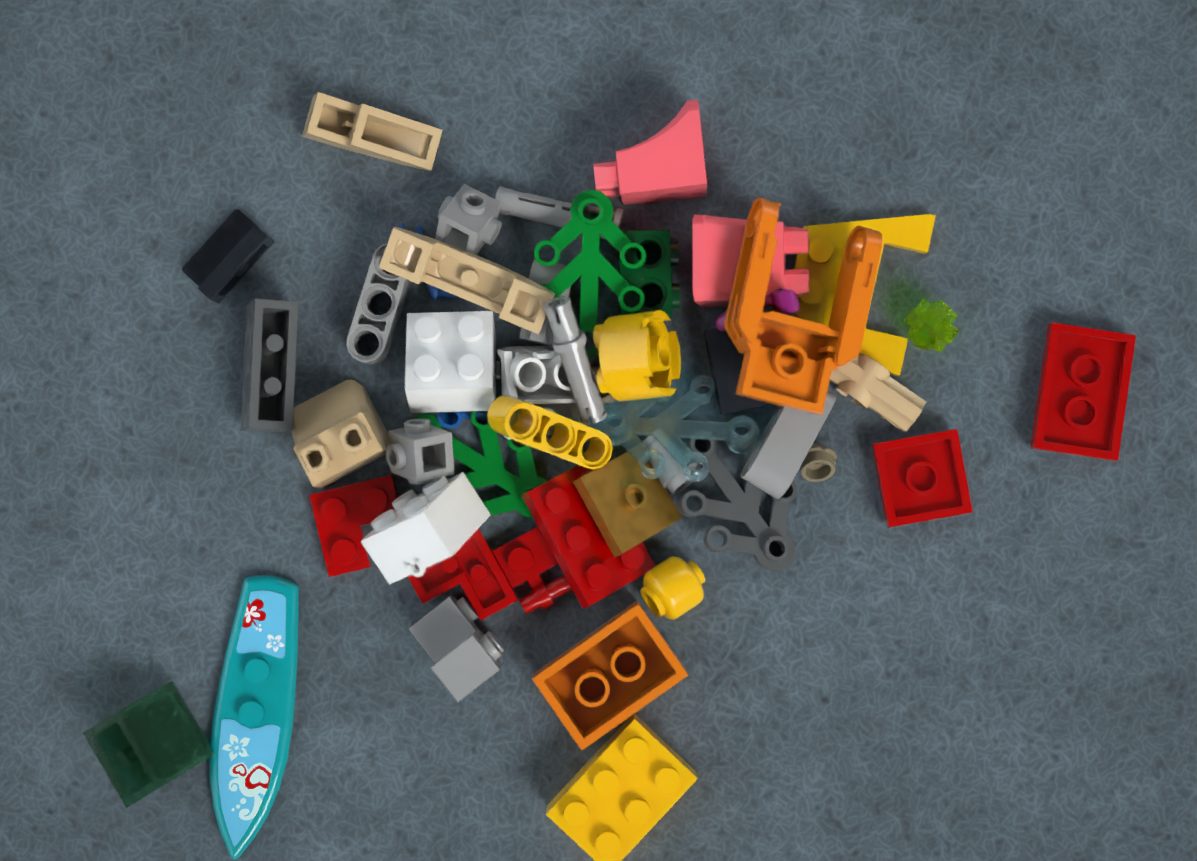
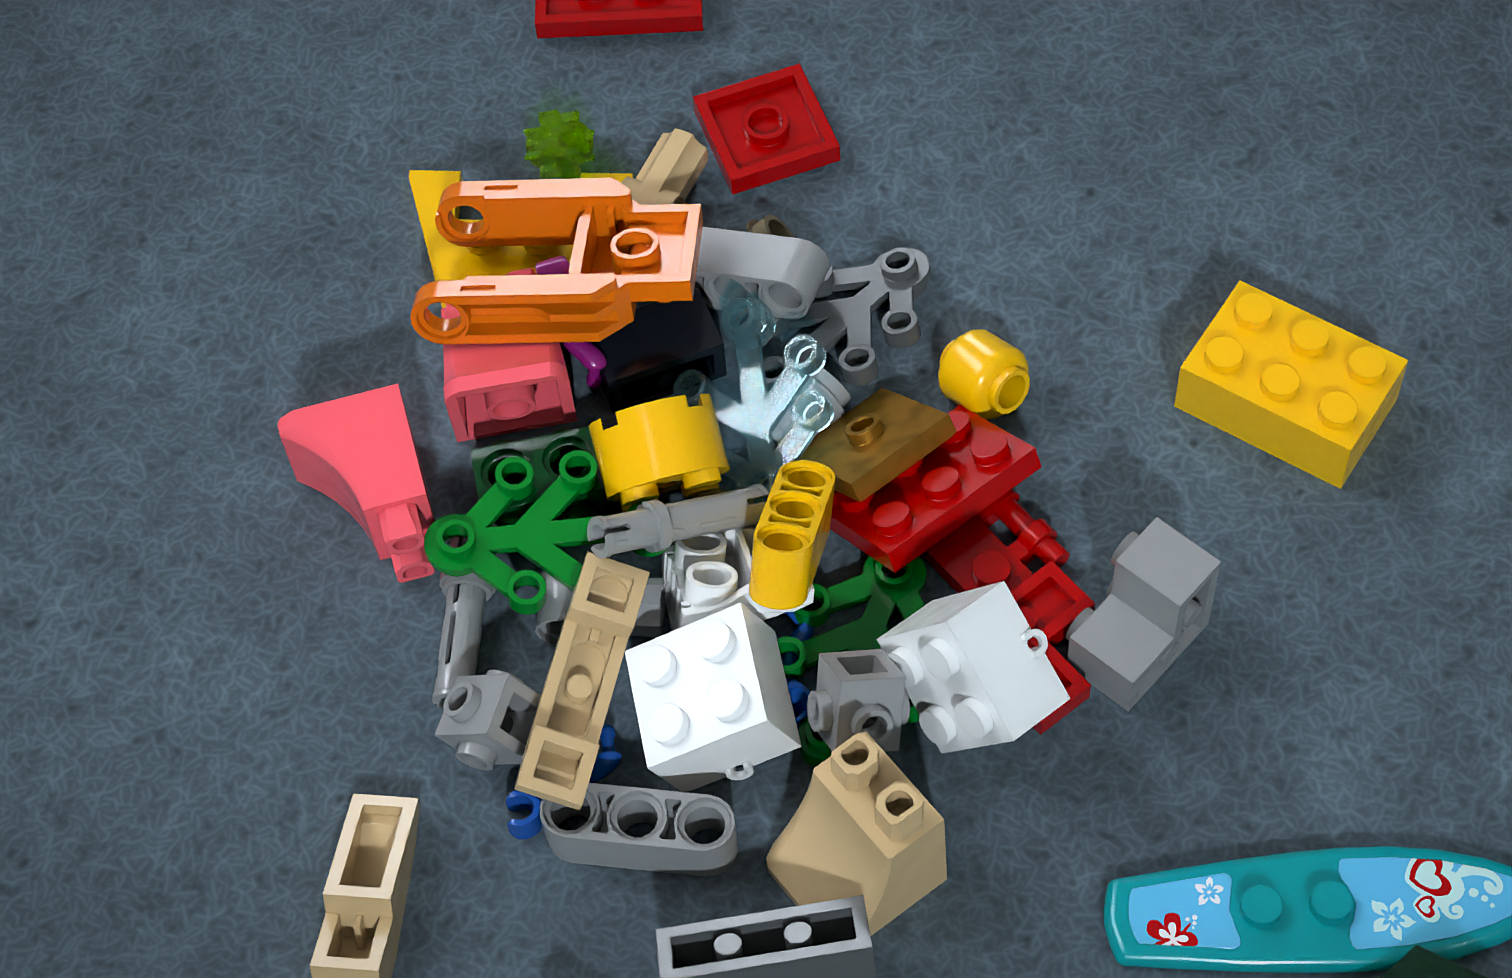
camera: 95 degrees left, 30 degrees down
(340, 519) = (993, 836): red plate -> none
(609, 675) = (1126, 419): orange brick -> none

